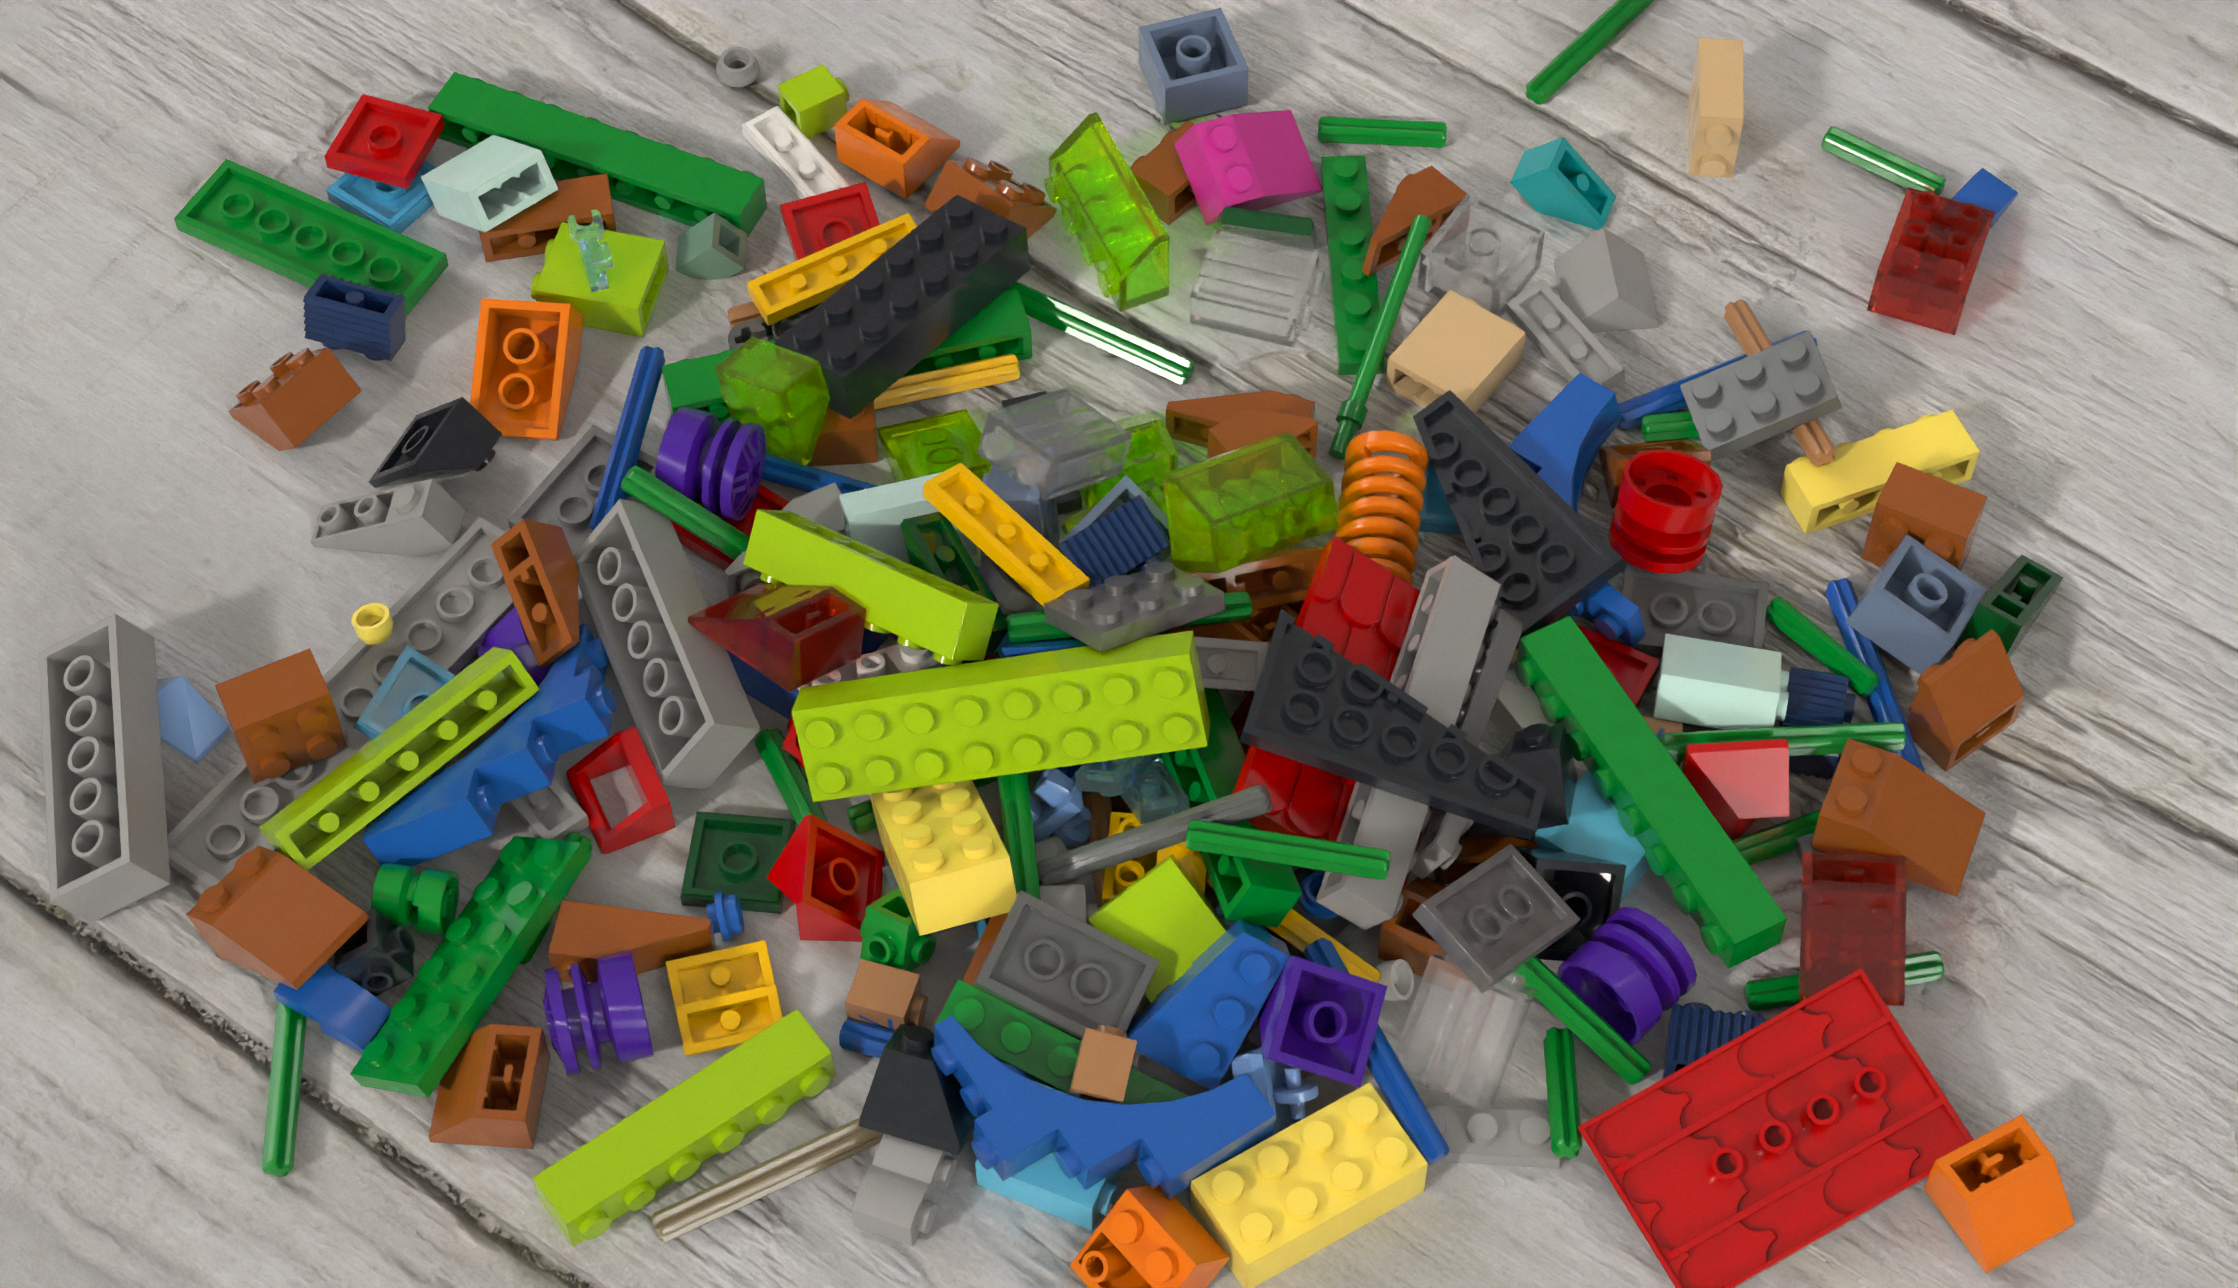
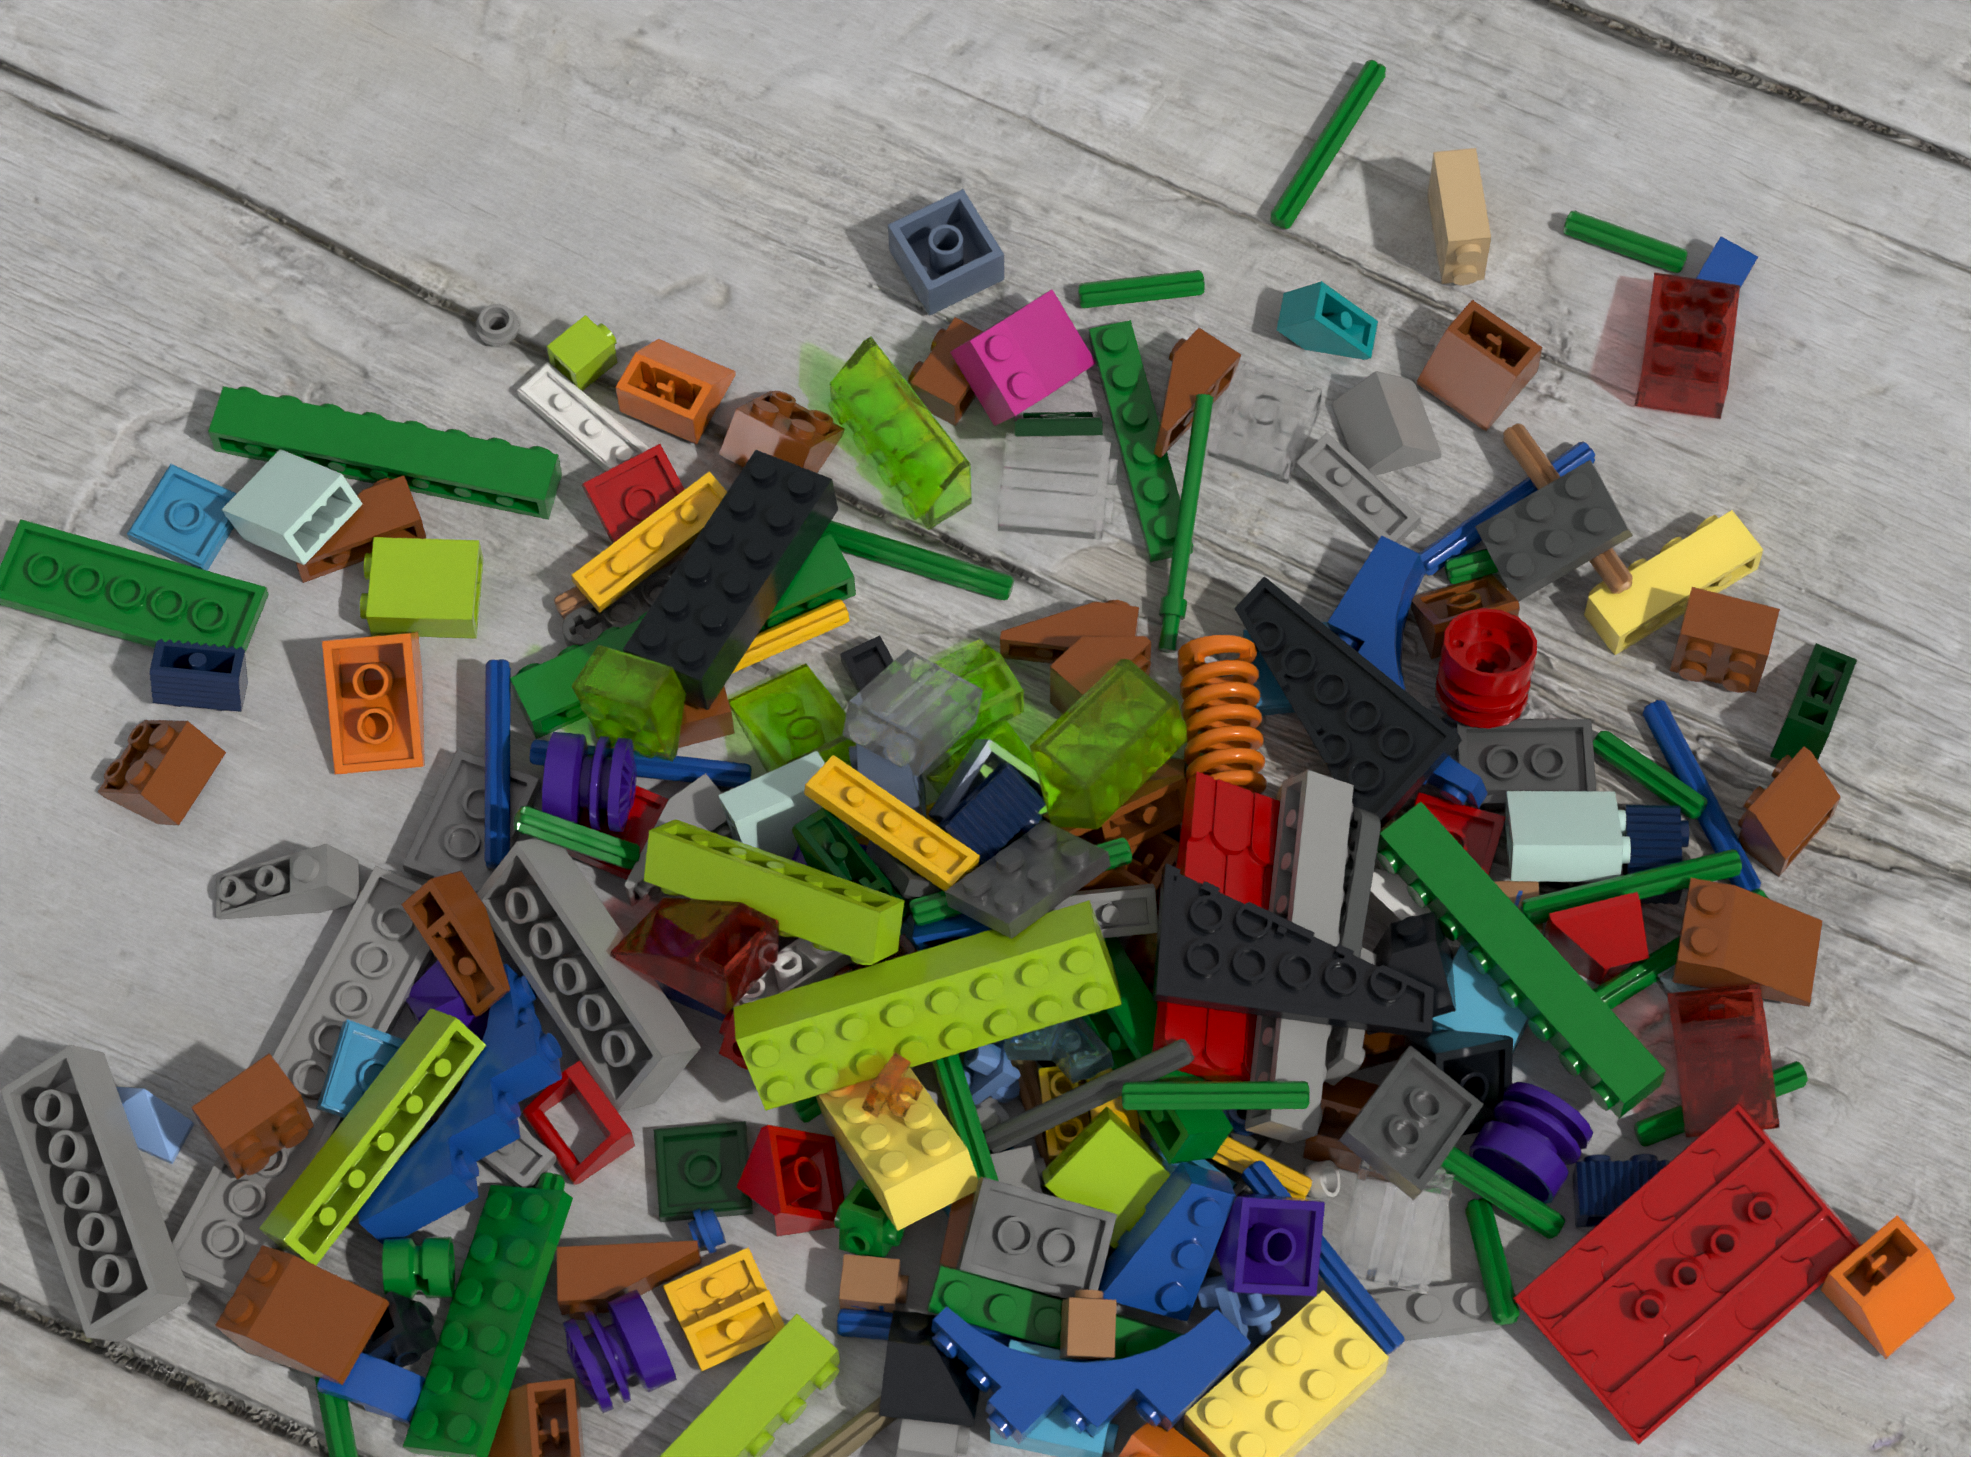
camera: 10 degrees left, 10 degrees up
(373, 623) = (307, 999): light yellow hinge -> none
(384, 141) = (174, 474): red plate -> none
(439, 446) = (313, 797): black slope -> none
(593, 255) = (418, 575): clear light blue plate -> none
(711, 249) = (522, 535): sand green brick -> none
(787, 776) = (734, 1085): green axle -> none
(942, 786) = (888, 1087): none -> clear orange tile
(1458, 351) = (1259, 528): tan brick -> none
(1713, 243) = (1480, 365): none -> dark orange slope
(1916, 605) = (1730, 723): sand blue brick -> none

